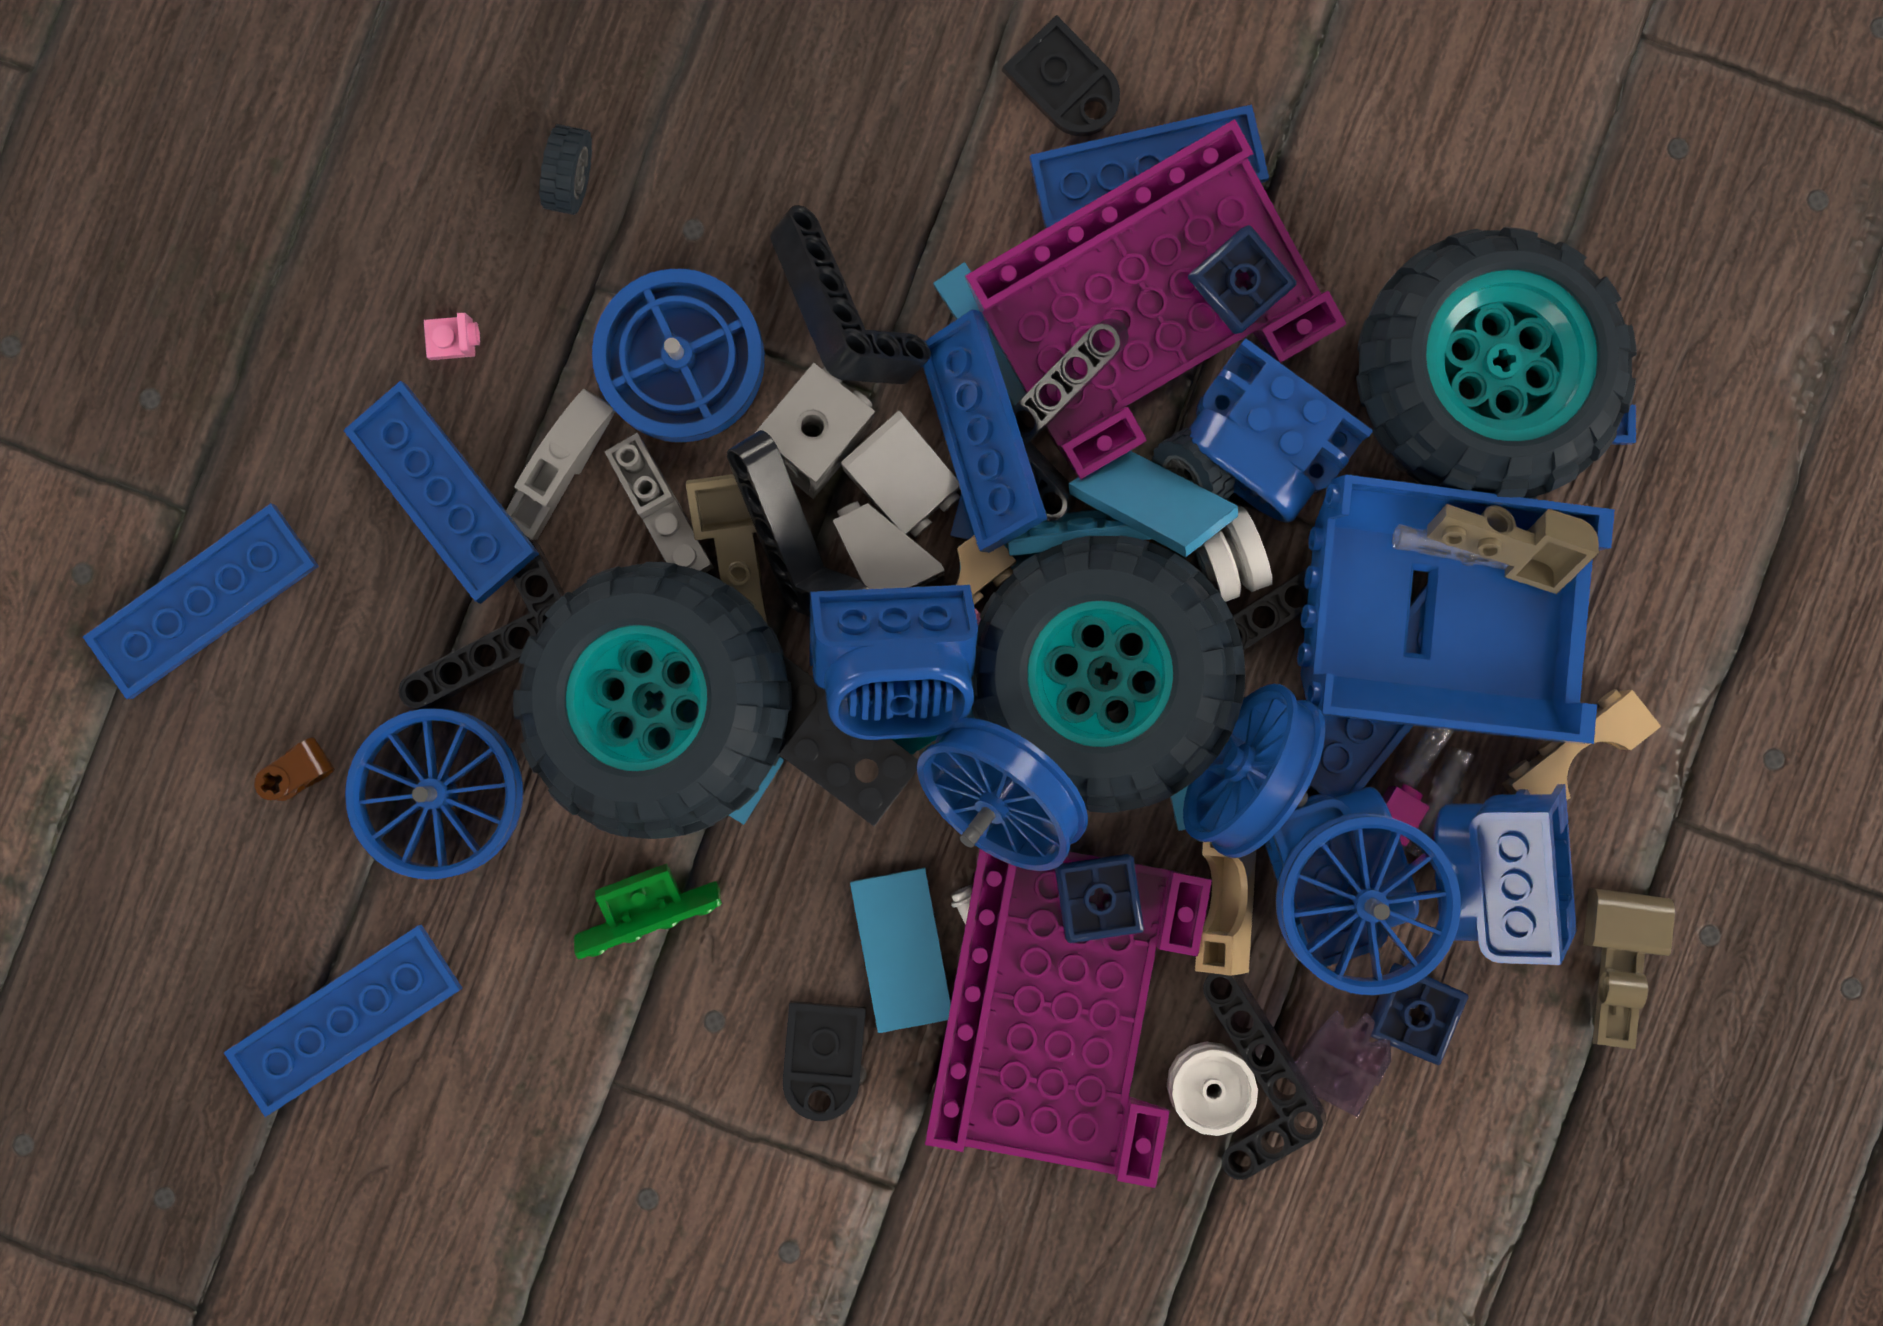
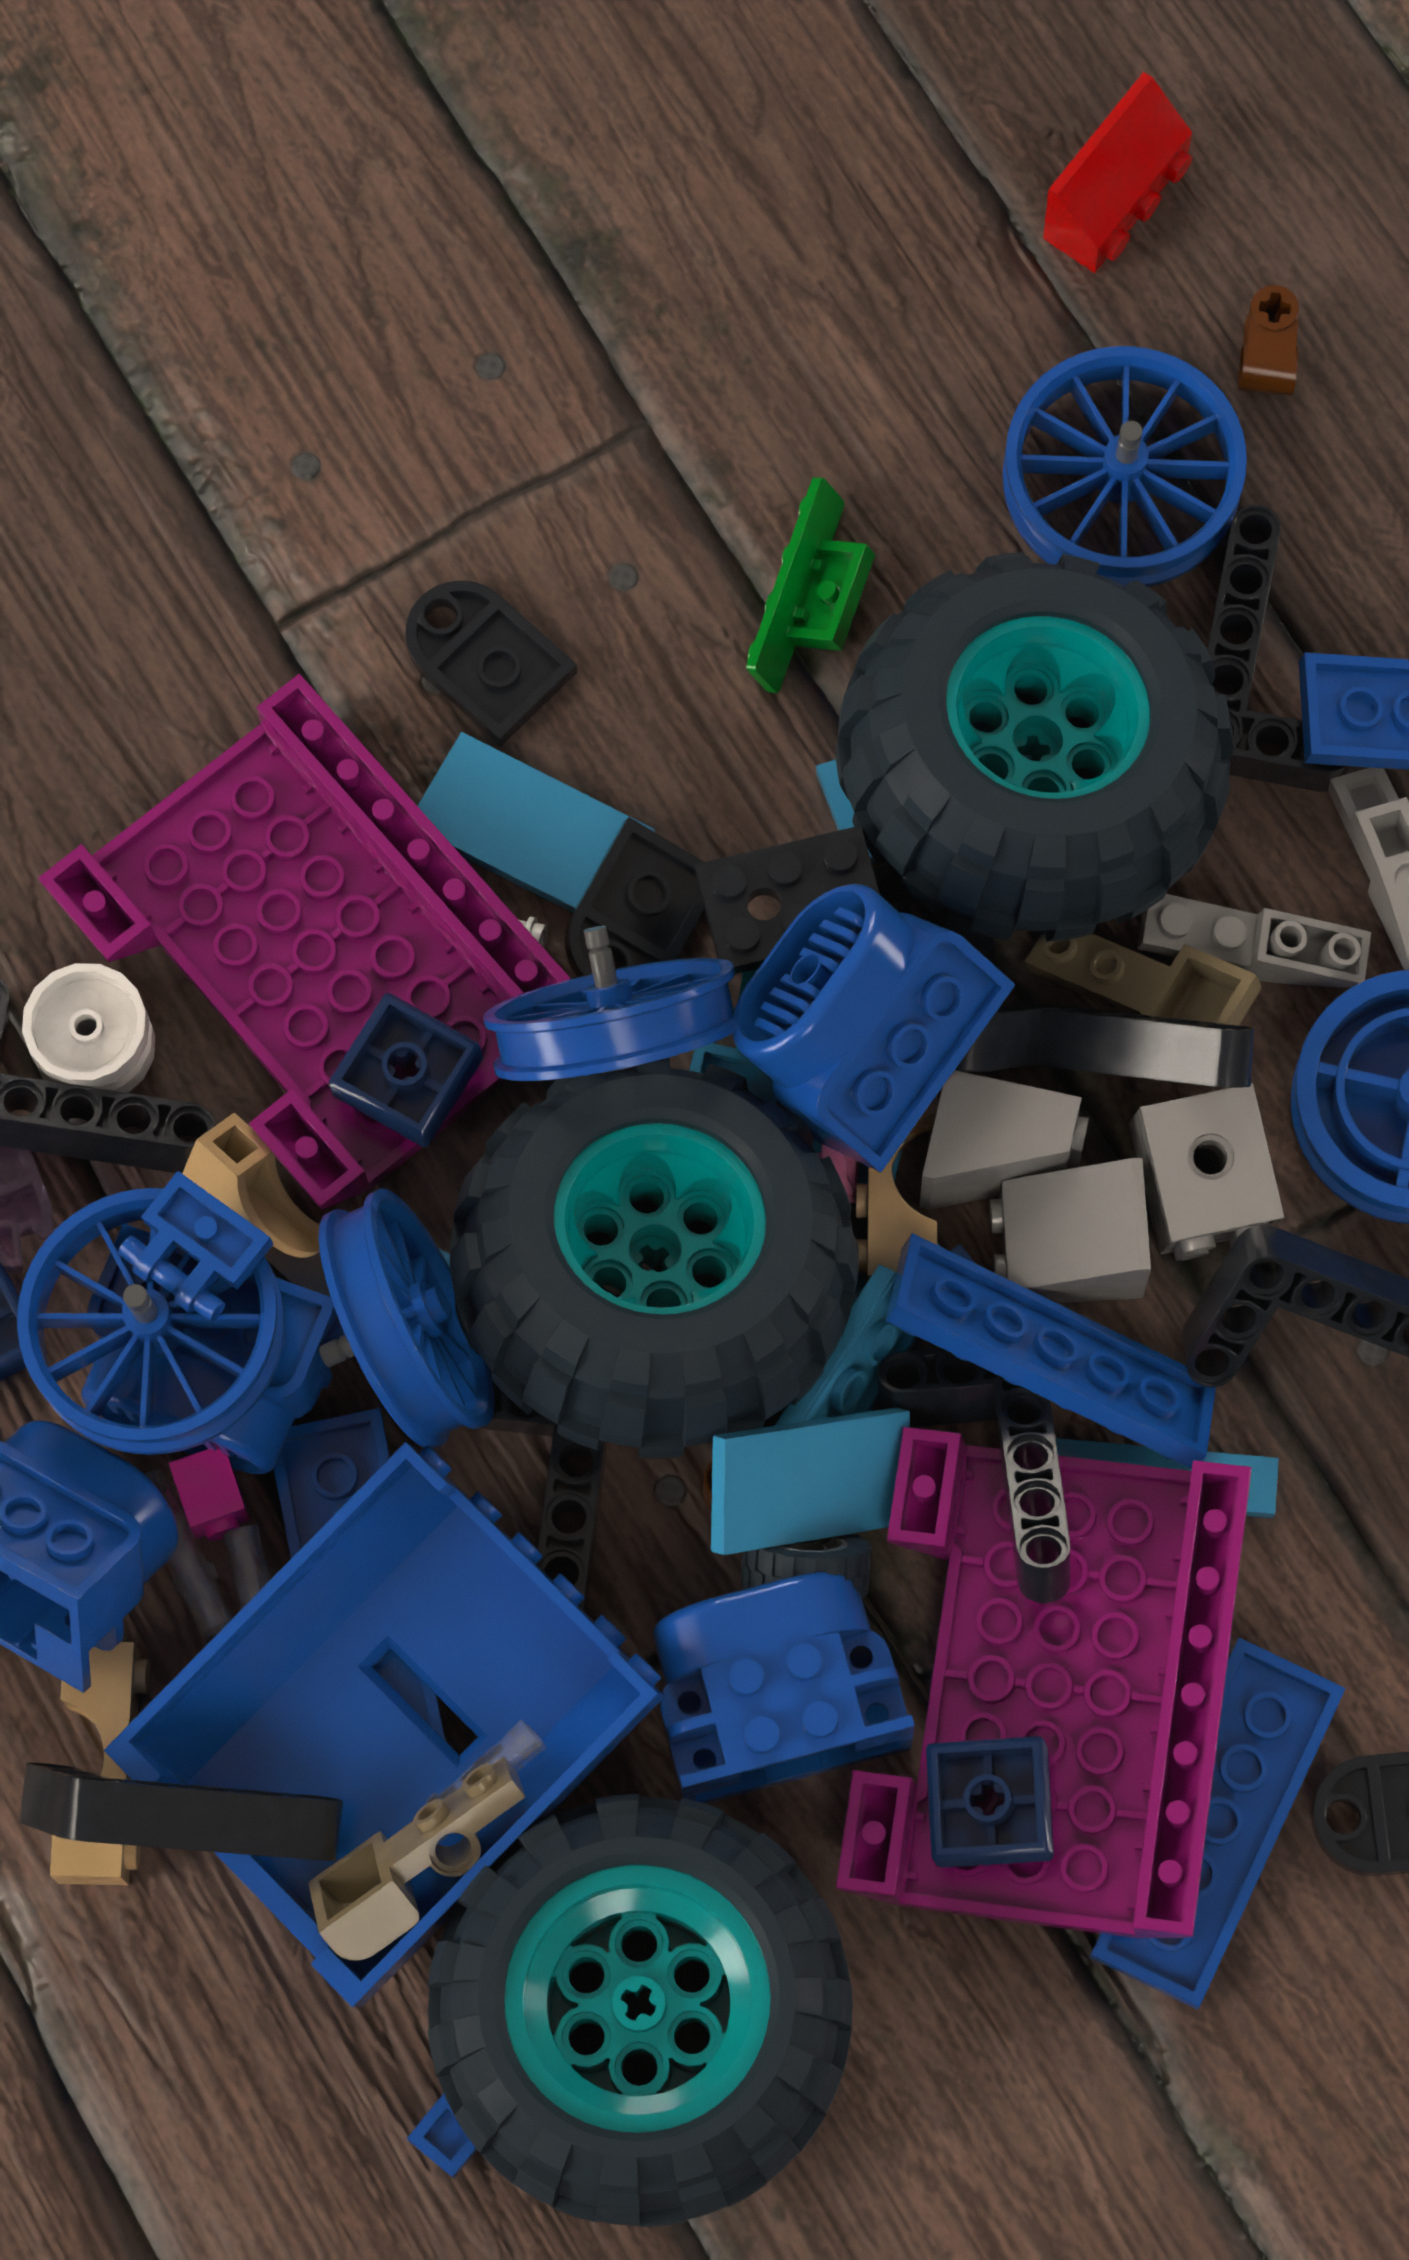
camera: 135 degrees right, 15 degrees down
(256, 934) = (1118, 176): none -> red slope
(343, 1020) = (951, 201): blue plate -> none
(902, 853) = (643, 897): none -> black tile
(1235, 556) = (665, 1532): white wheel -> none
(1308, 908) = (207, 1232): none -> blue plate
(1601, 676) = (178, 1816): none -> black beam

